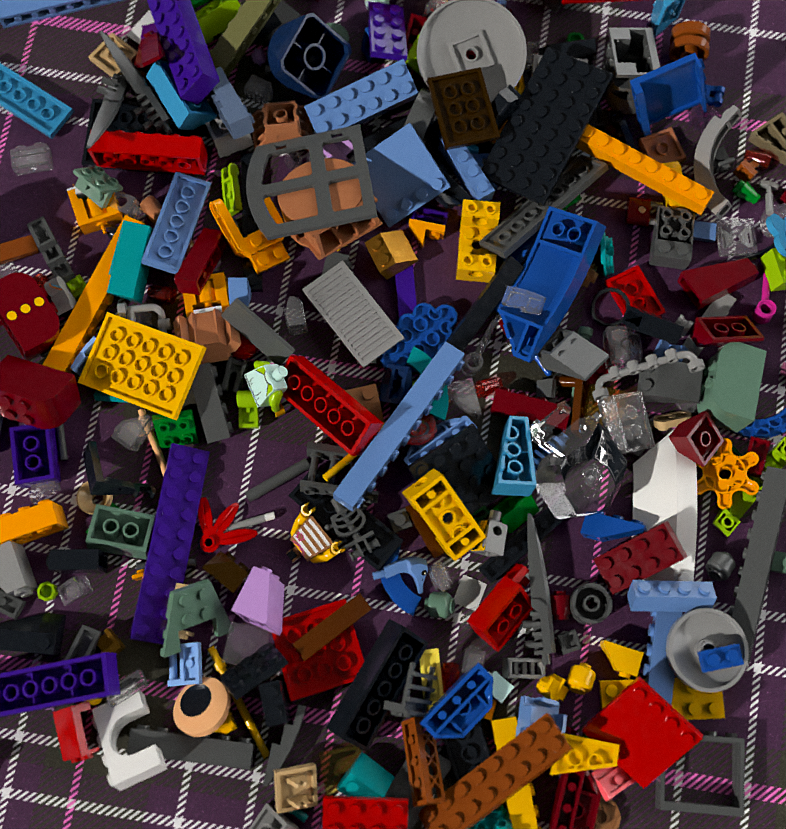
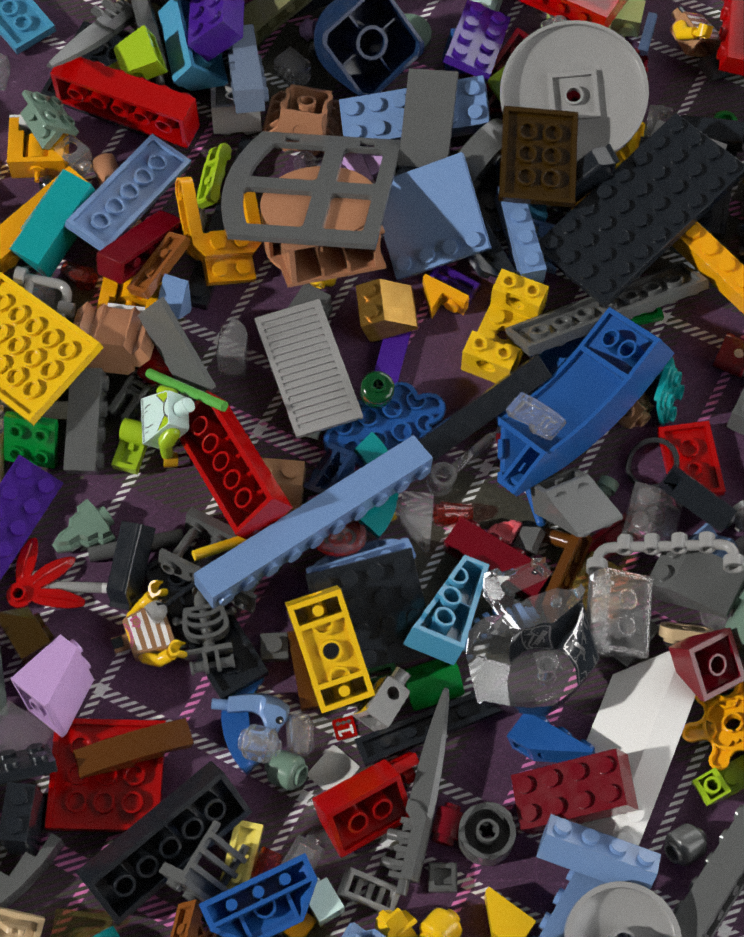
camera: 20 degrees right, 10 degrees down
(147, 116) = (139, 55): none -> lime torso
(220, 271) = (158, 264): none -> dark orange plate
(238, 479) = (85, 529): none -> sand green rock
(275, 359) = (187, 389): none -> bright green bar
(280, 497) = (129, 564): none -> black piece
(314, 524) = (158, 610): none -> light grey hinge
(374, 102) = (427, 117): none -> dark grey tile
(404, 320) = (377, 389): none -> dark green head
(417, 594) = (259, 743): none -> clear head
(467, 561) = (344, 728): none -> red sticker
(527, 386) = (507, 530): none -> coral tile

